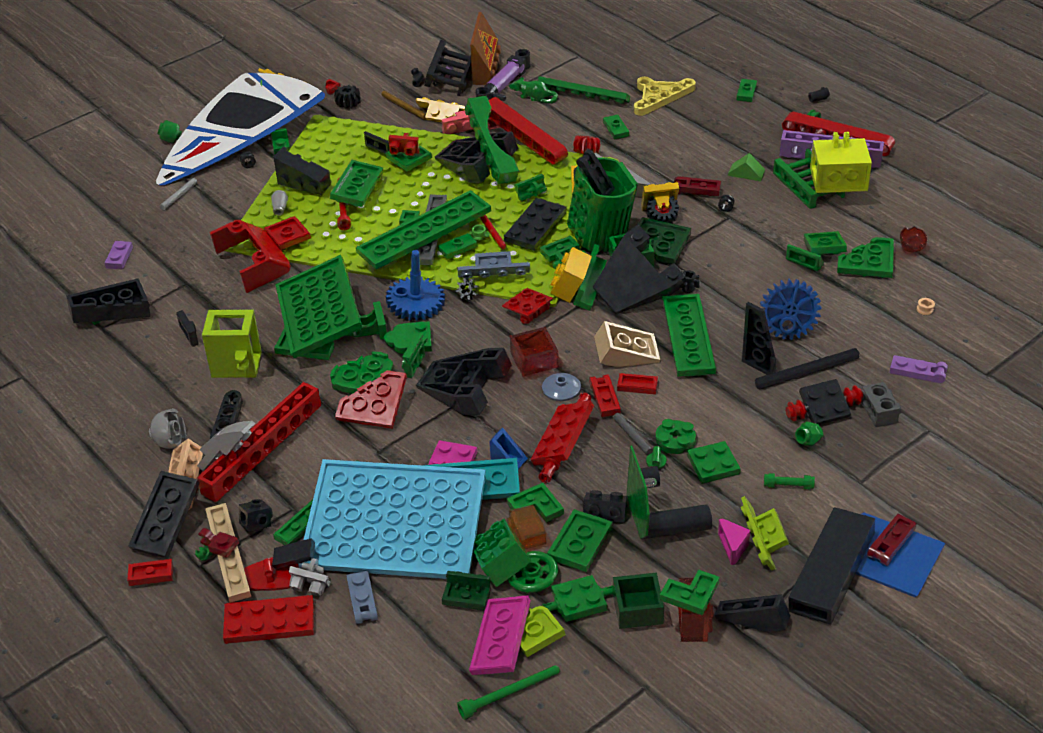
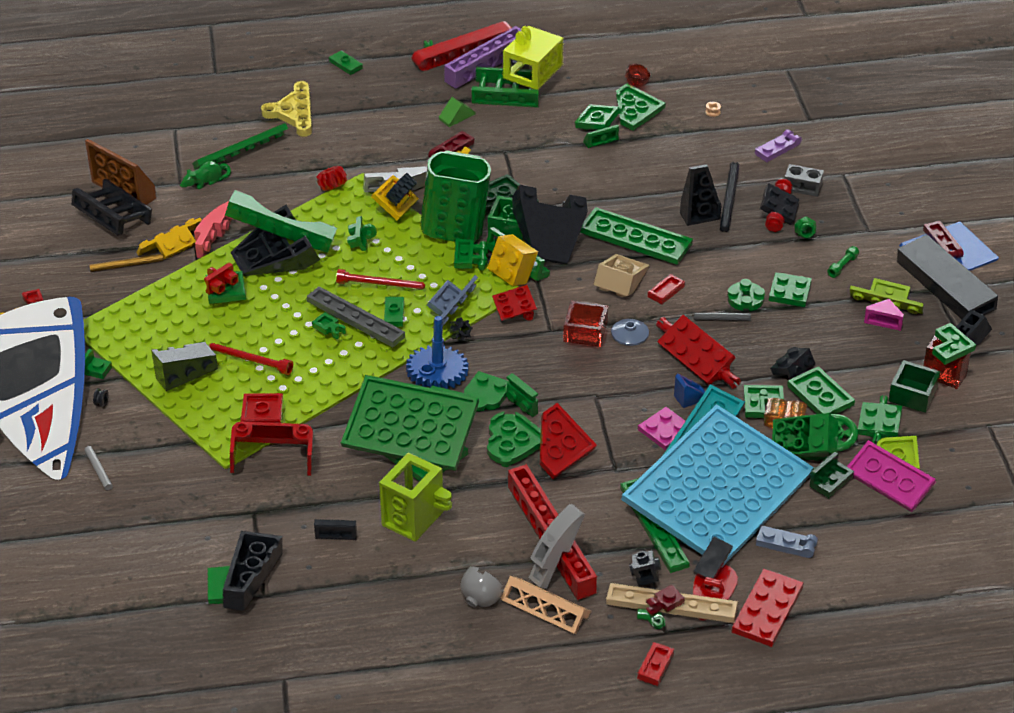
camera: 60 degrees left, 0 degrees up
(118, 255) = (157, 545): medium lavender plate -> none
(164, 514) = (600, 624): black plate -> none
(226, 406) = (492, 547): black beam -> none
(279, 201) = (205, 396): light grey cone -> none
(317, 580) = (743, 559): light grey hips -> none
(347, 96) = (72, 288): black gear -> none
(356, 183) = (238, 334): green plate -> none
(376, 143) = (185, 298): black slope -> none
(418, 77) = (90, 235): black arm -> none
(423, 229) = (363, 318): green plate -> none
(459, 378) = (572, 384): black wedge -> none
(469, 707) = (949, 524): green piece -> none
(479, 232) = (390, 290): bright green plate -> none
(516, 66) = (154, 169): piece -> none
(527, 132) = (296, 199): red beam -> none
(535, 224) = (410, 254): black plate -> none
(595, 173) = (441, 166): black plate -> none
(605, 395) = (662, 308): red plate -> none
(616, 127) = (314, 153): green plate -> none
(656, 458) = (764, 316): green plate -> none
(660, 522) = (825, 330): piece -> none
(726, 198) = (492, 142): black bush -> none
(791, 303) = (671, 166): blue gear -> none
(823, 93) = (400, 28): black pin -> none

